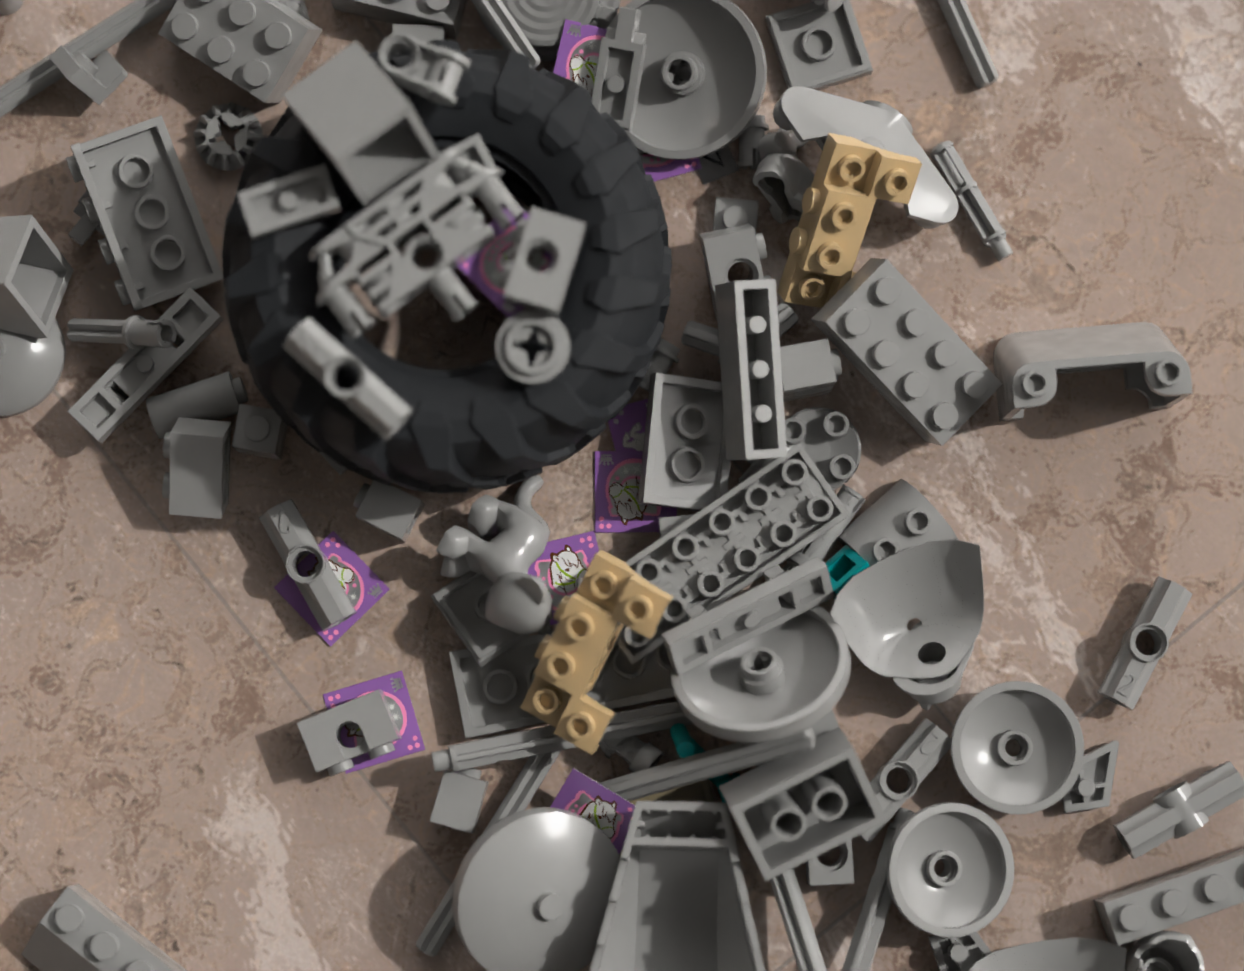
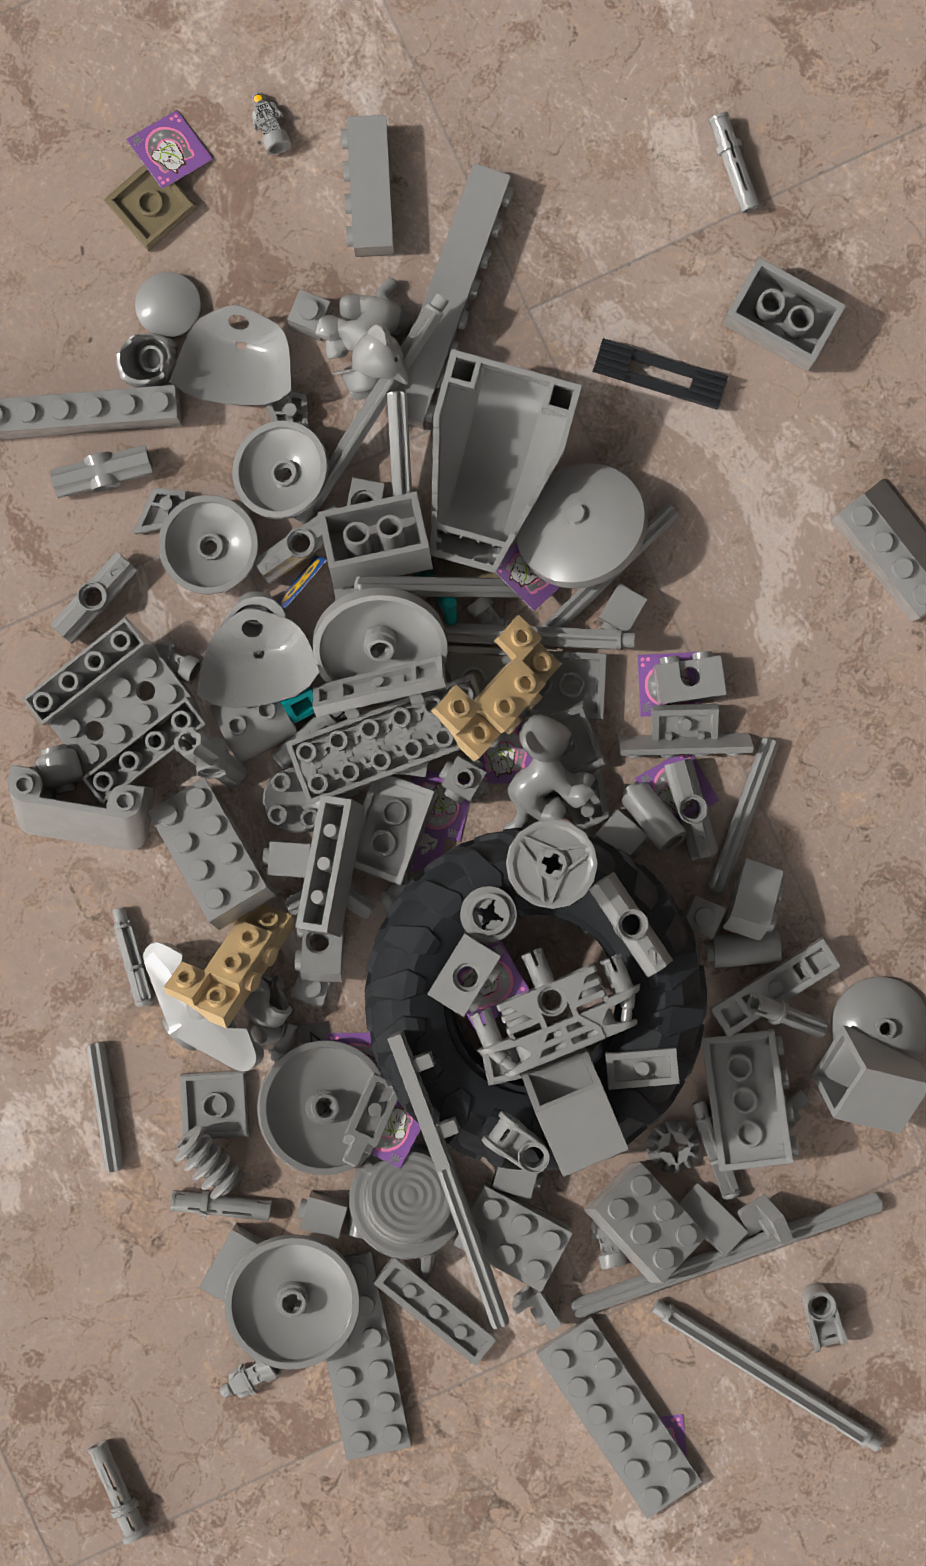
camera: 170 degrees left, 5 degrees up
(149, 107) = (726, 1180): none -> light grey piece
(156, 57) = (721, 1227): none -> light grey slope
(237, 576) = (743, 815): none -> light grey axle
(338, 662) = (685, 731): none -> light grey bracket
(353, 542) = (653, 816): none -> light grey brick
(429, 533) = (595, 808): none -> light grey piece
(449, 402) = (572, 852): none -> light grey piece
(534, 59) = (432, 1130): none -> light grey hinge
(616, 510) = (457, 791): none -> light grey brick
(884, 730) = (301, 581): none -> blue sticker
(941, 471) = (210, 757): none -> light grey piece
(1034, 590) = (185, 667): none -> light grey piece
(1098, 529) = (104, 688): none -> light grey slope
(1128, 411) = (59, 769): none -> light grey head

